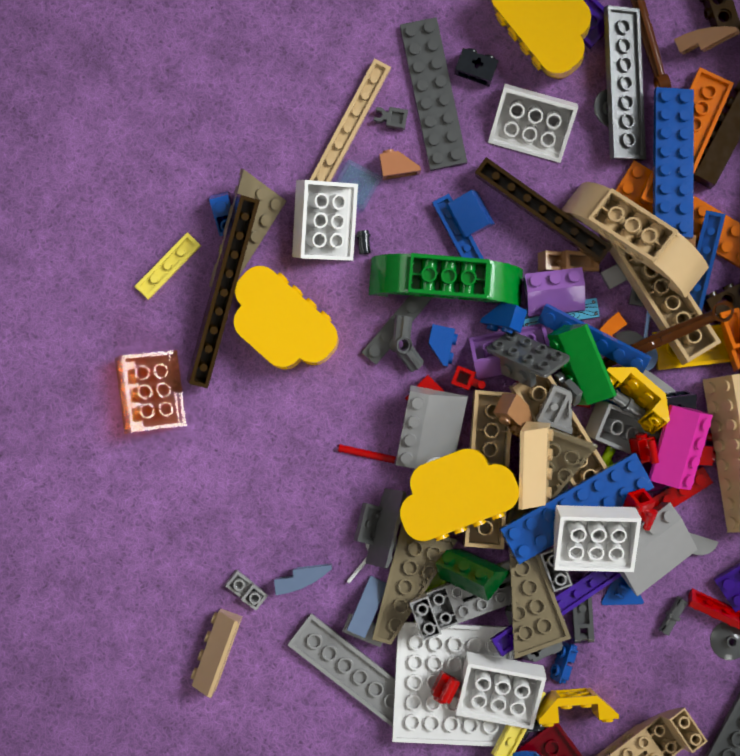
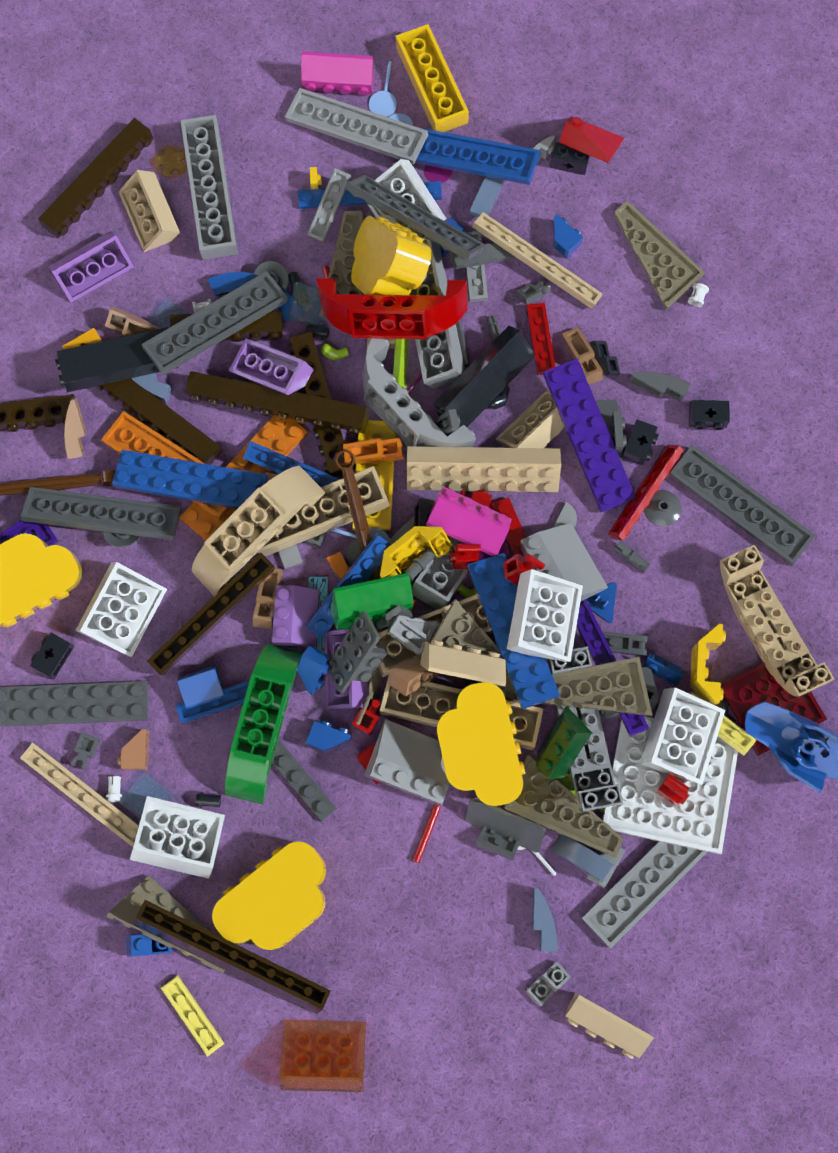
camera: 80 degrees left, 10 degrees down
(359, 152) = (114, 789): none -> white pin
(407, 353) = (330, 773): dark grey piece -> none
(493, 381) = (374, 691): none -> dark tan piece

